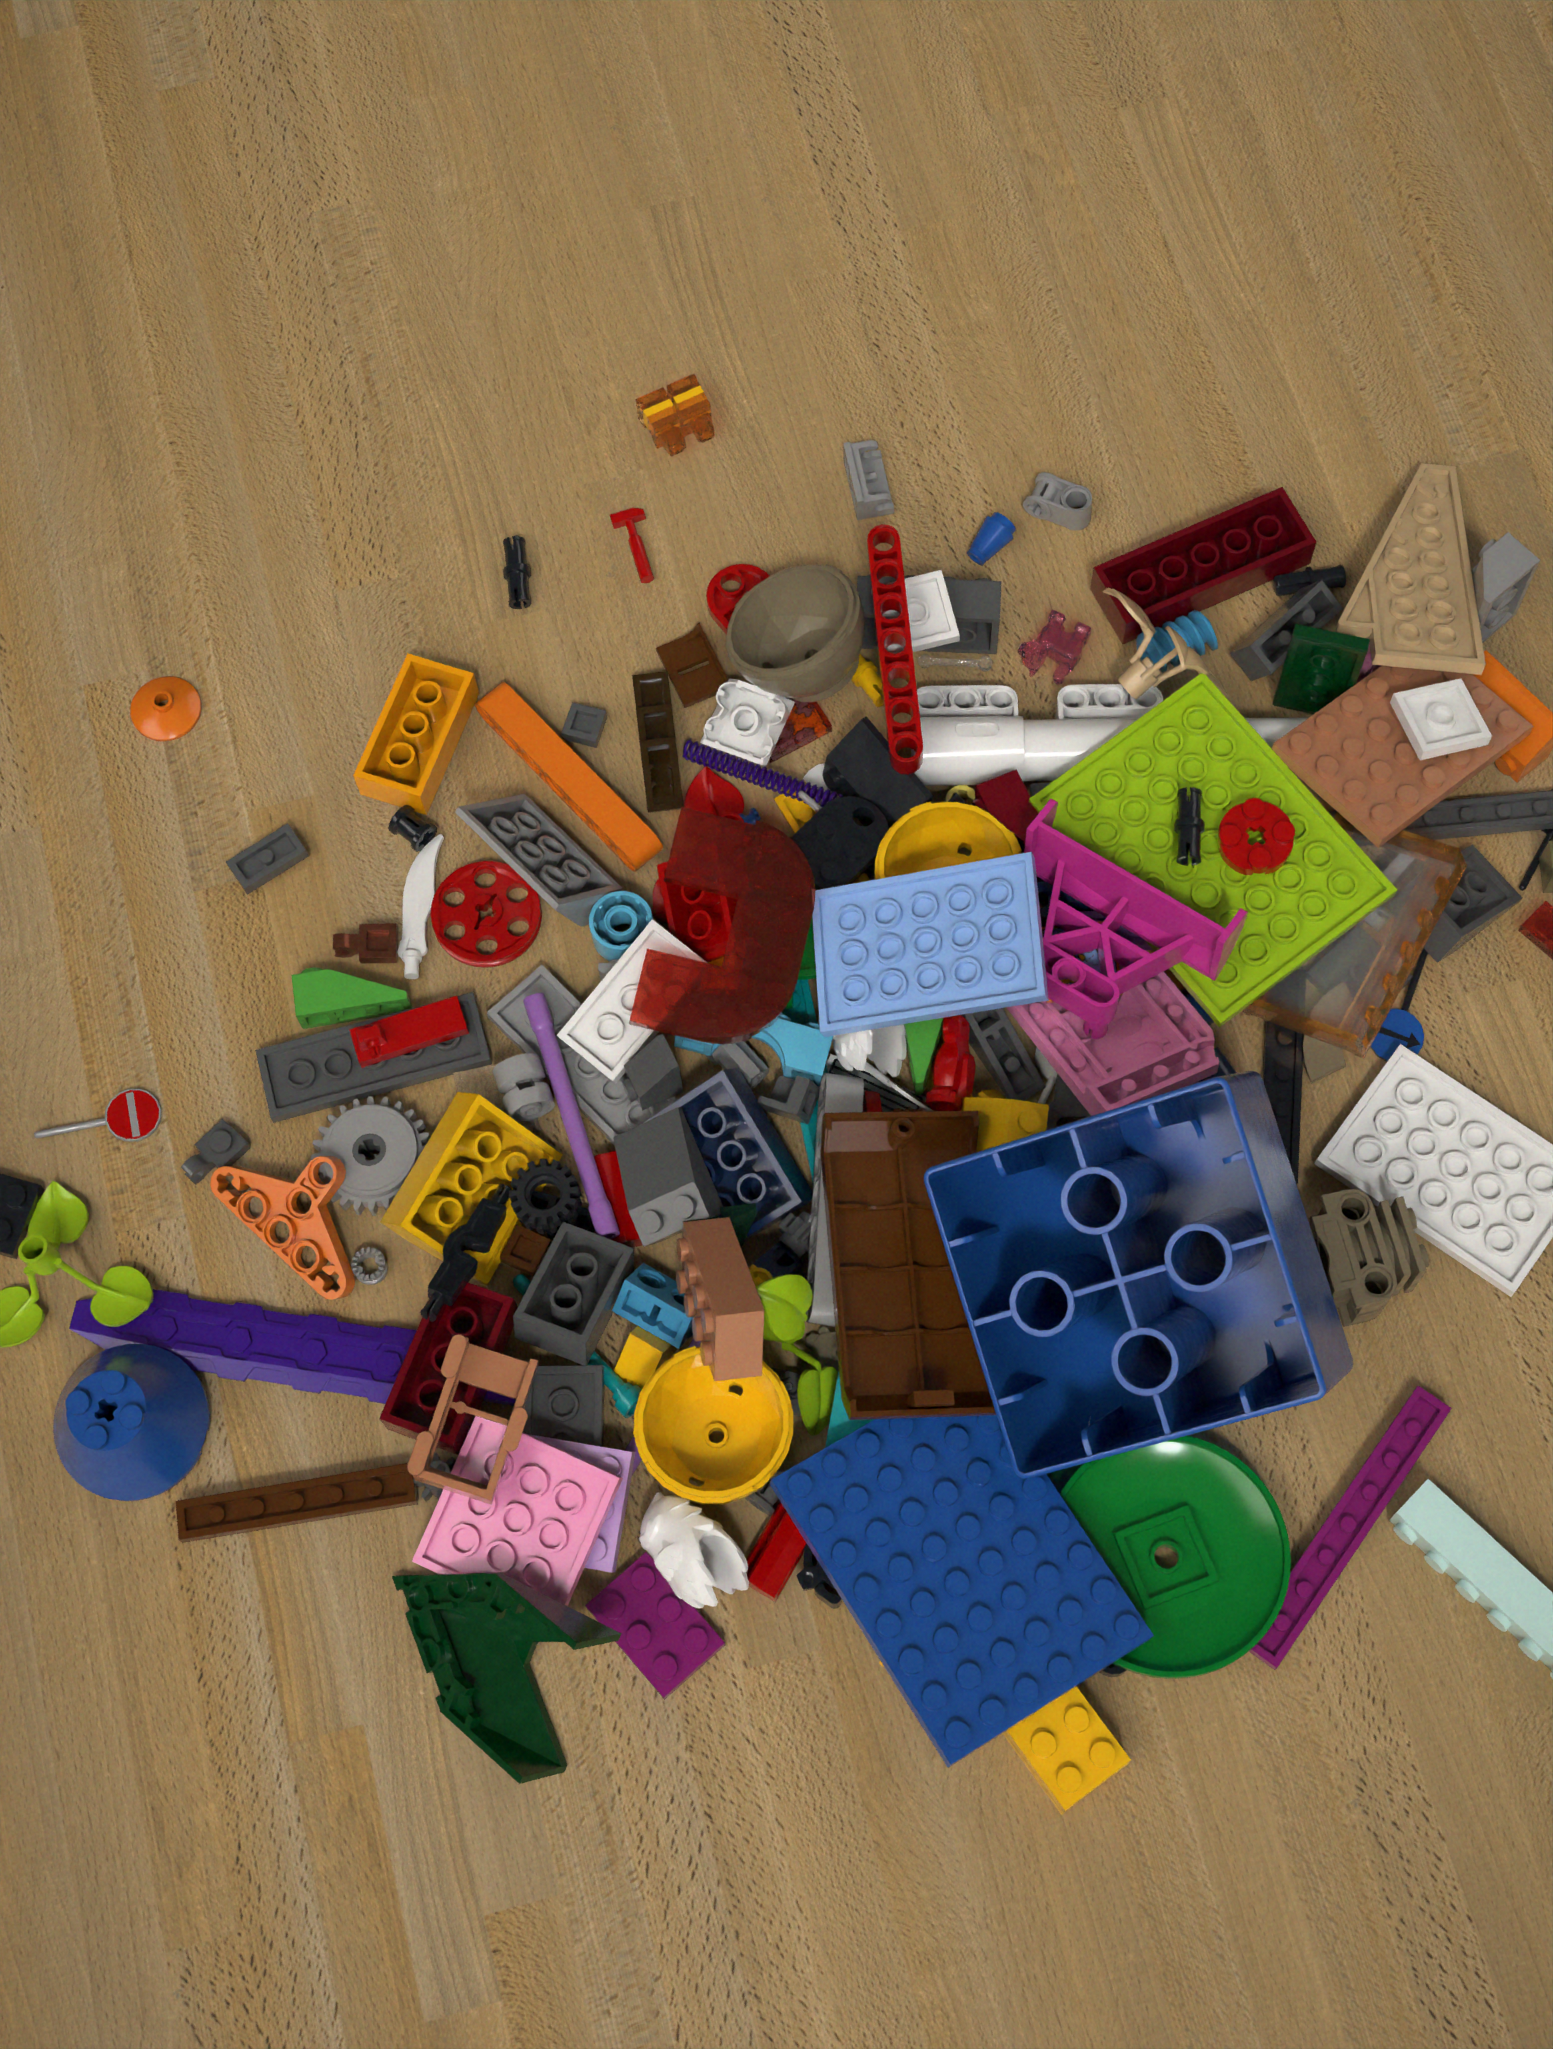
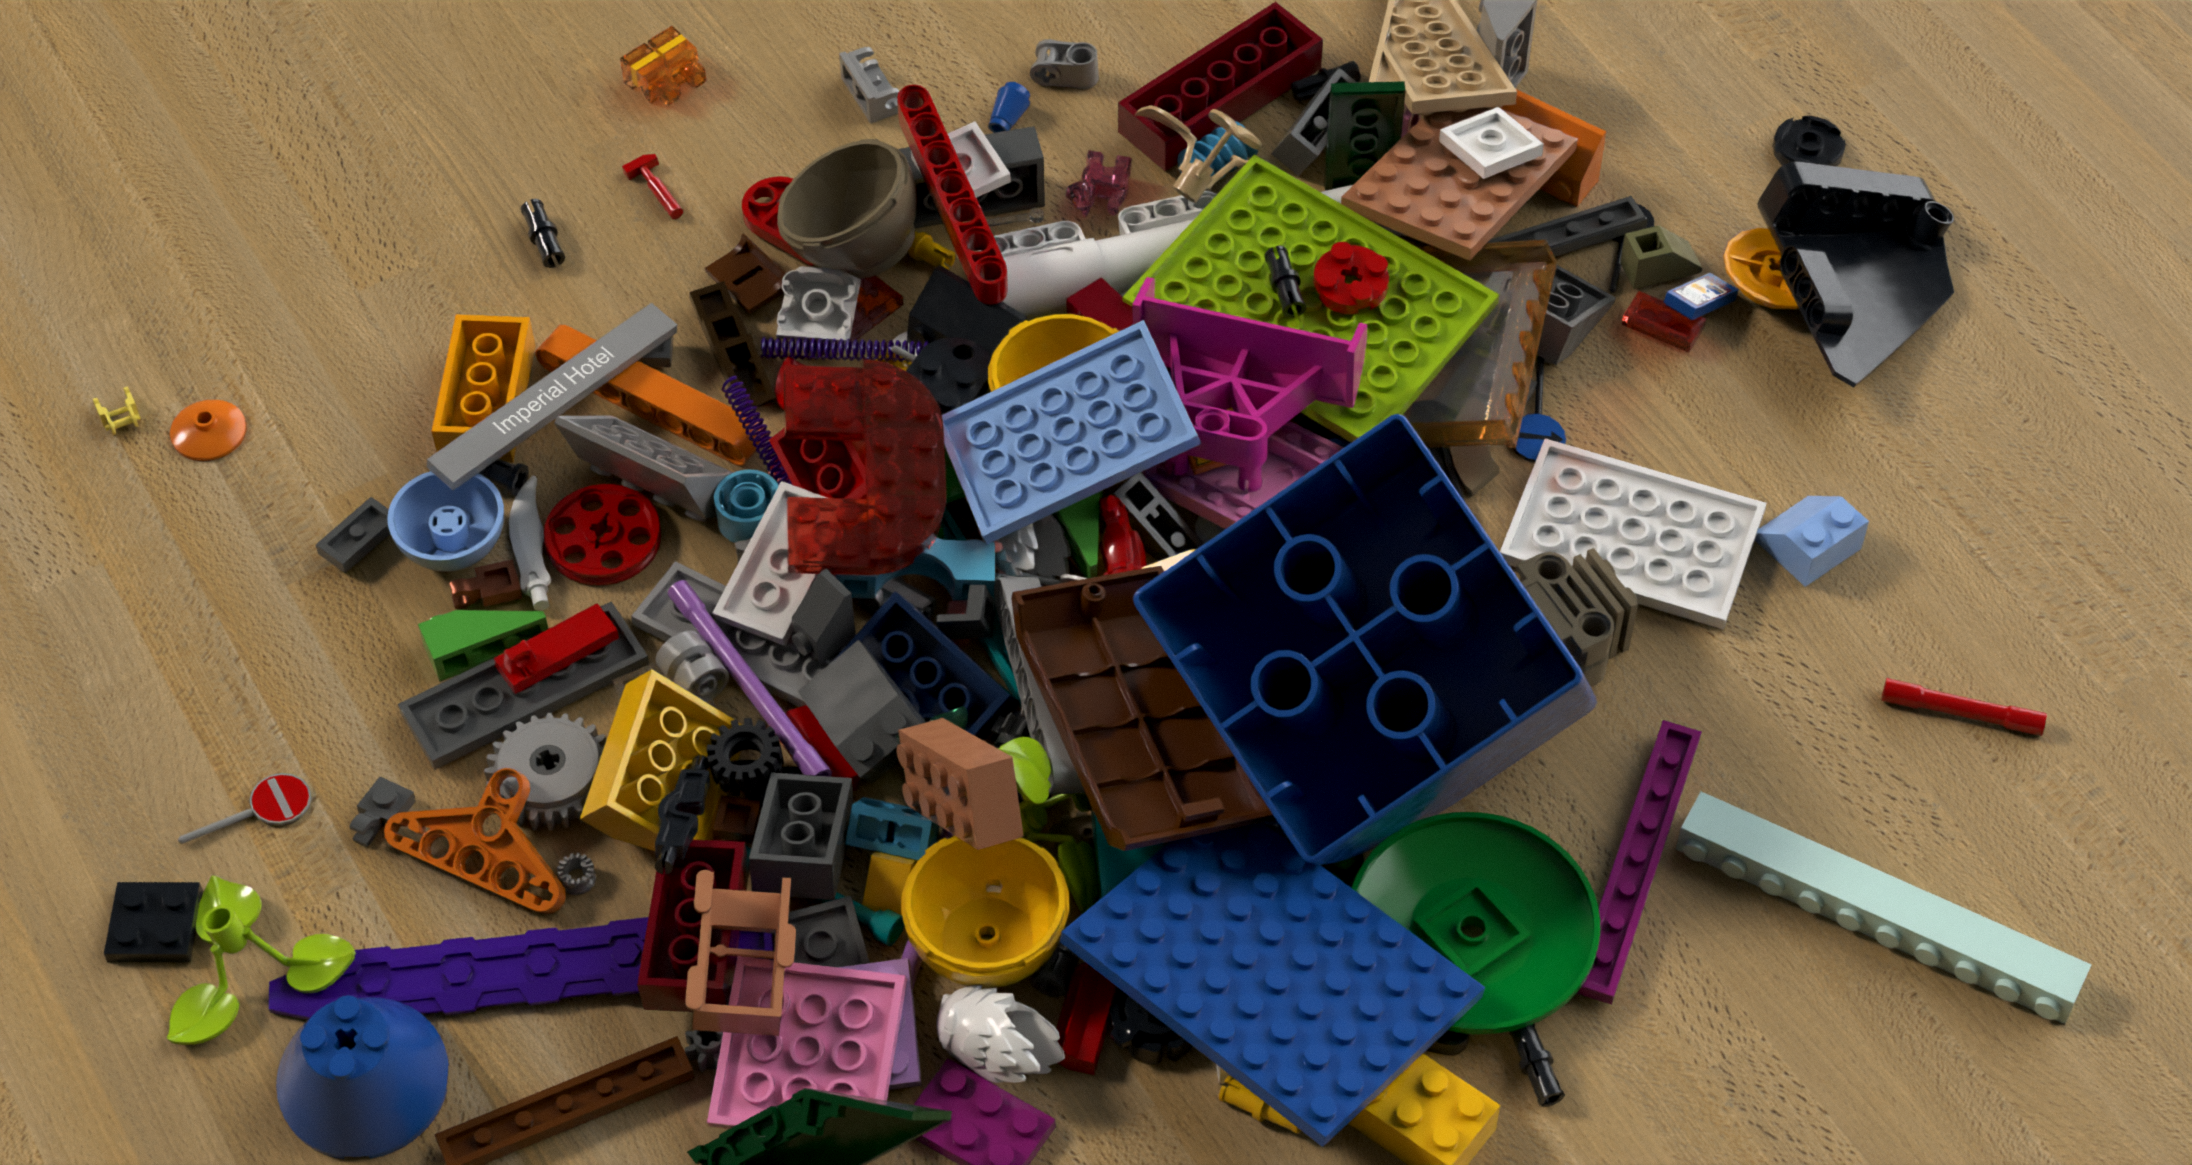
camera: 20 degrees left, 15 degrees down
(102, 669) = (105, 416): none -> light yellow piece
(336, 856) = (443, 525): none -> light blue piece
(471, 765) = (551, 396): none -> light grey tile
(646, 849) = (756, 427): none -> dark purple piece
(1183, 1717) = (1537, 1064): none -> black pin

